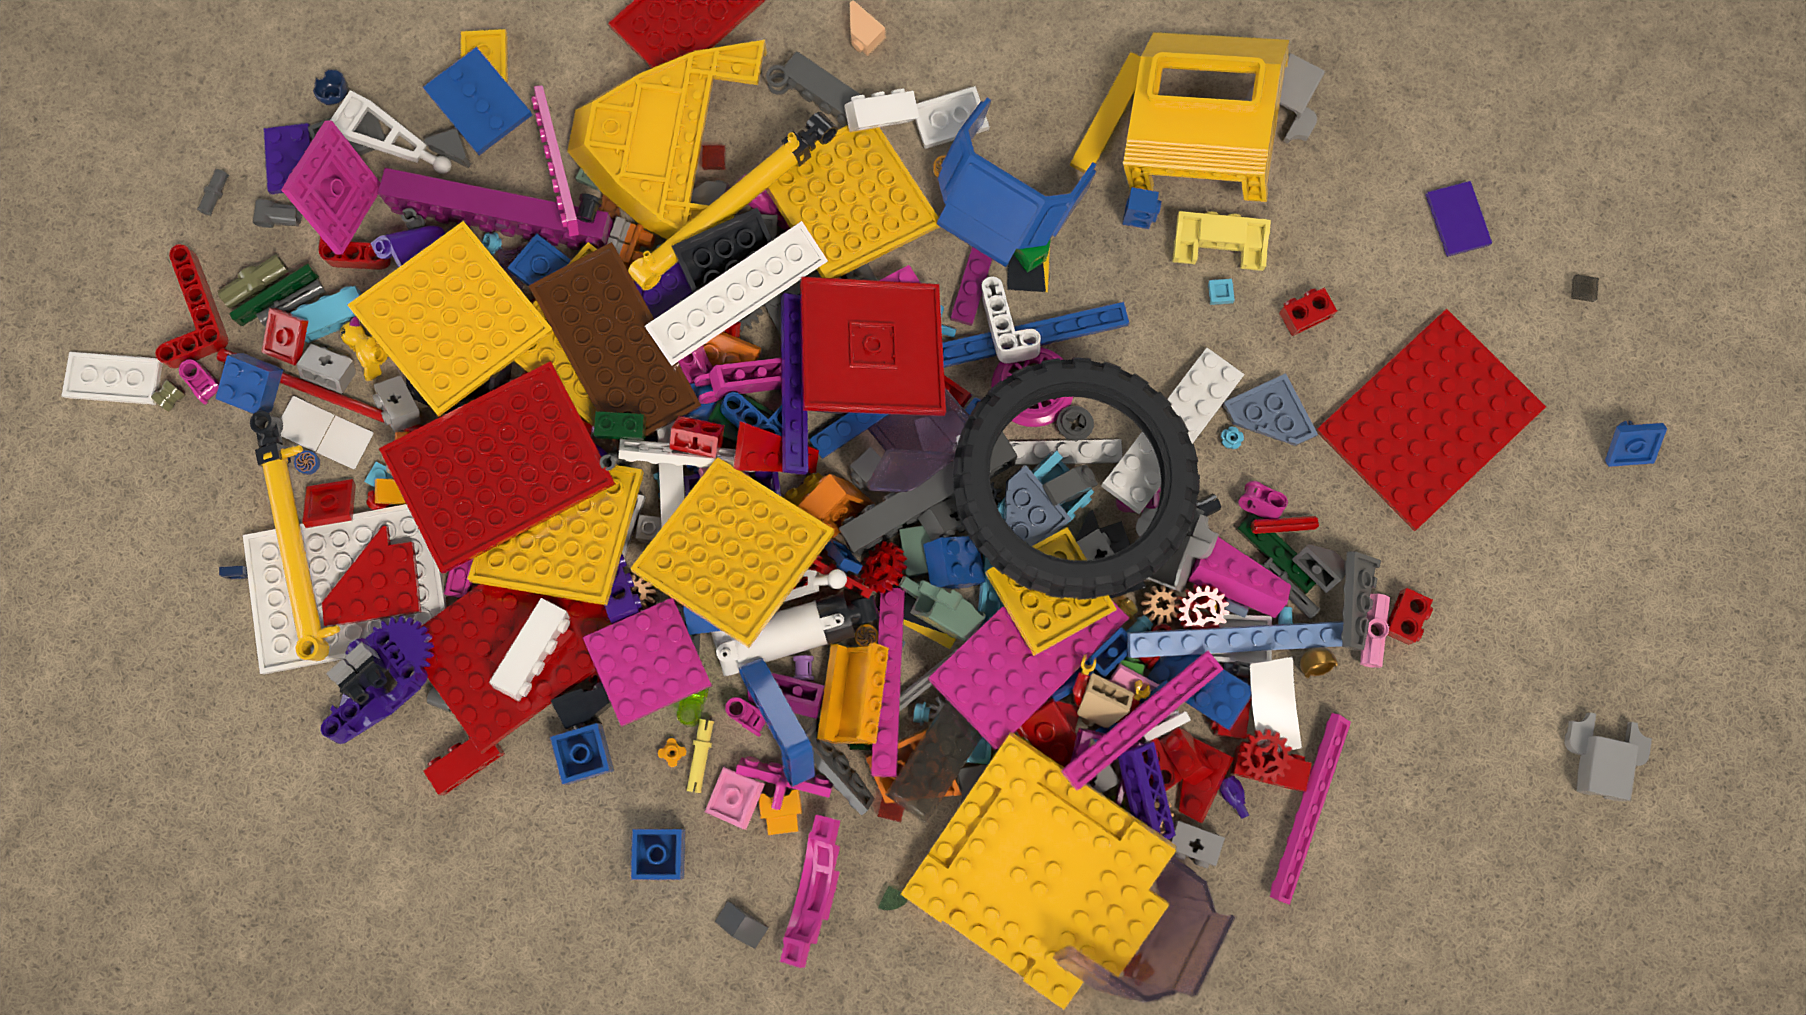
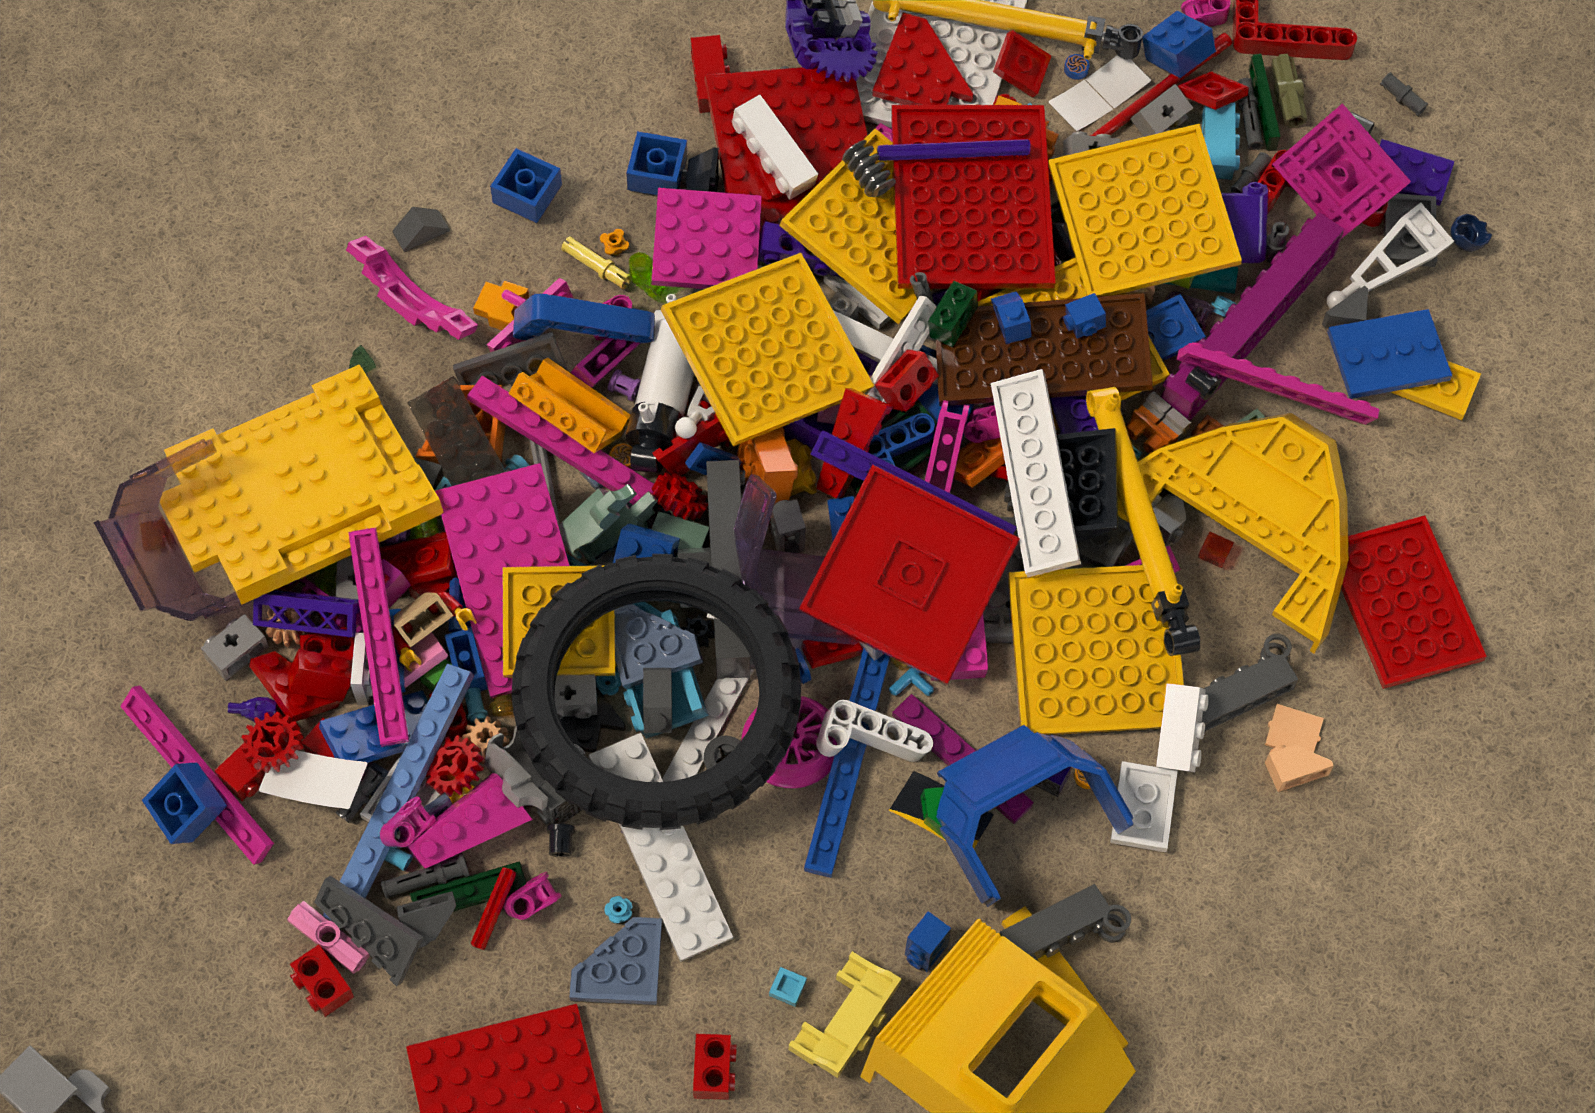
camera: 115 degrees right, 15 degrees down
(352, 275) = (1252, 173): none -> dark grey pin
(463, 497) = (953, 149): none -> dark purple axle
(518, 554) = (866, 170): none -> dark grey piece
(576, 318) = (1085, 316): none -> blue brick
(598, 380) = (1012, 317): none -> blue slope
(734, 798) = (536, 269): bright pink tile -> none
(832, 45) = (1293, 728): none -> light nougat piece
(1078, 129) = (1067, 923): none -> dark grey hinge
(1272, 614) = (410, 820): none -> dark pink piece
(1317, 662) = (335, 858): pearl gold hair -> none
(1344, 797) = (184, 803): none -> blue brick

